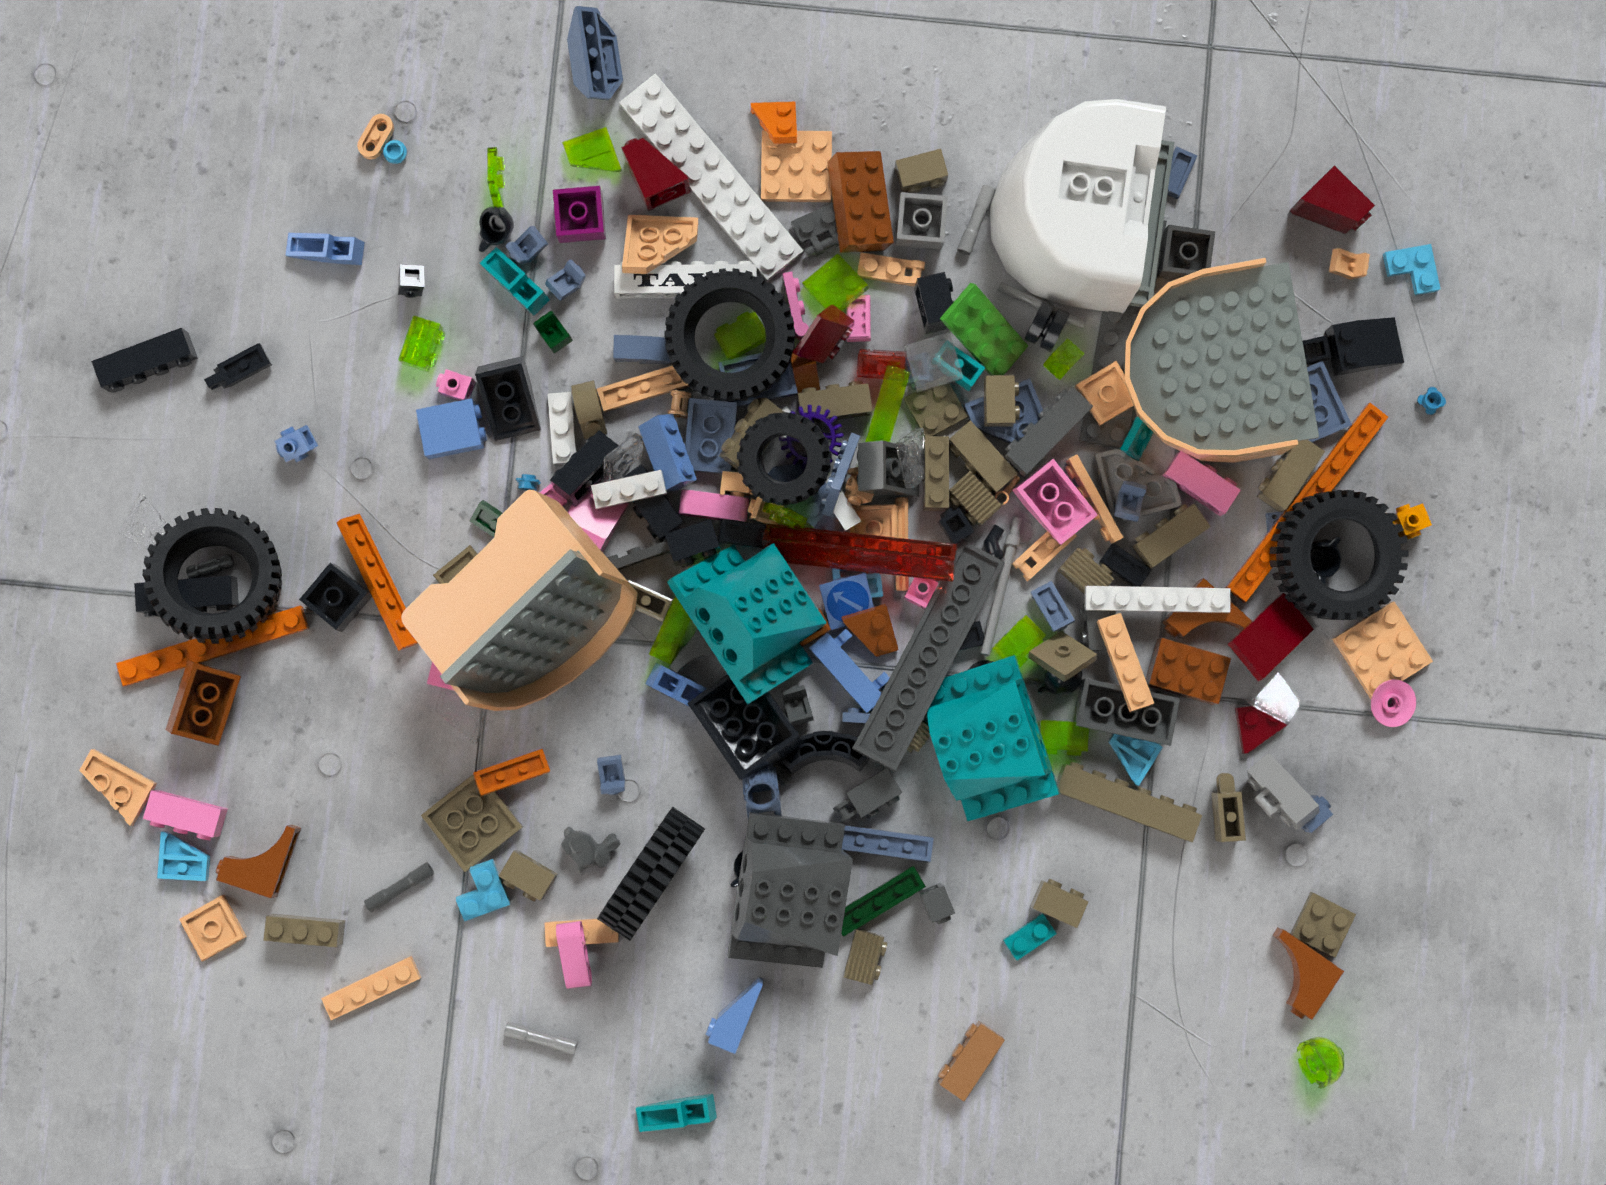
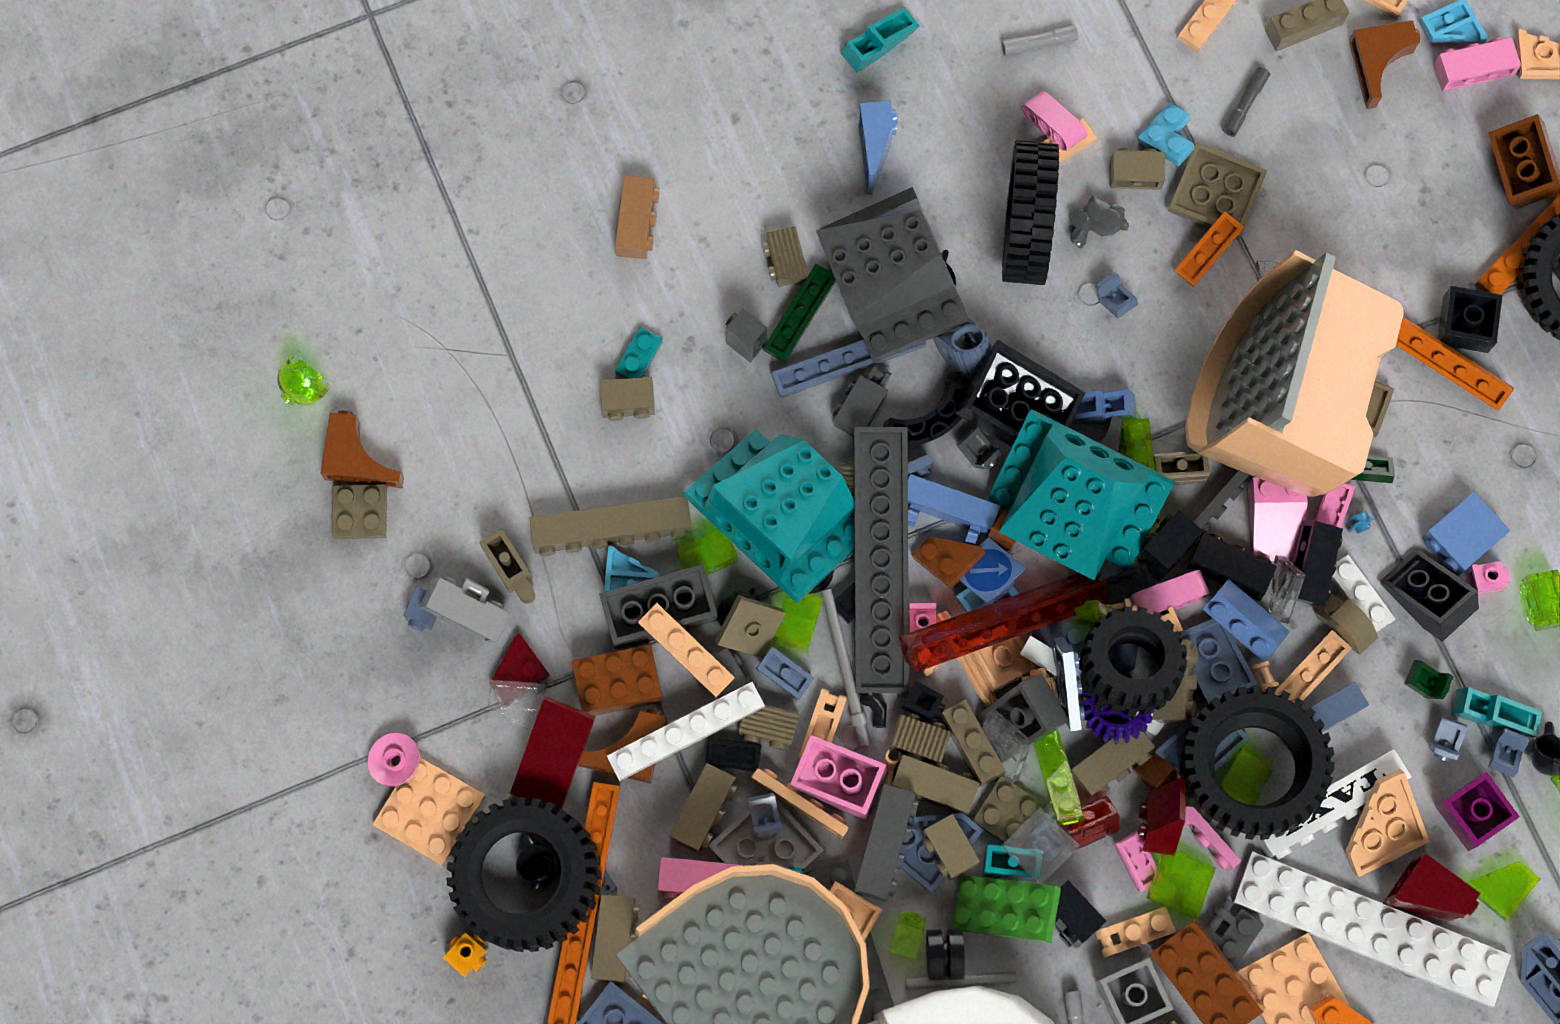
camera: 155 degrees right, 10 degrees down
(629, 489) = (1261, 562): white plate -> none

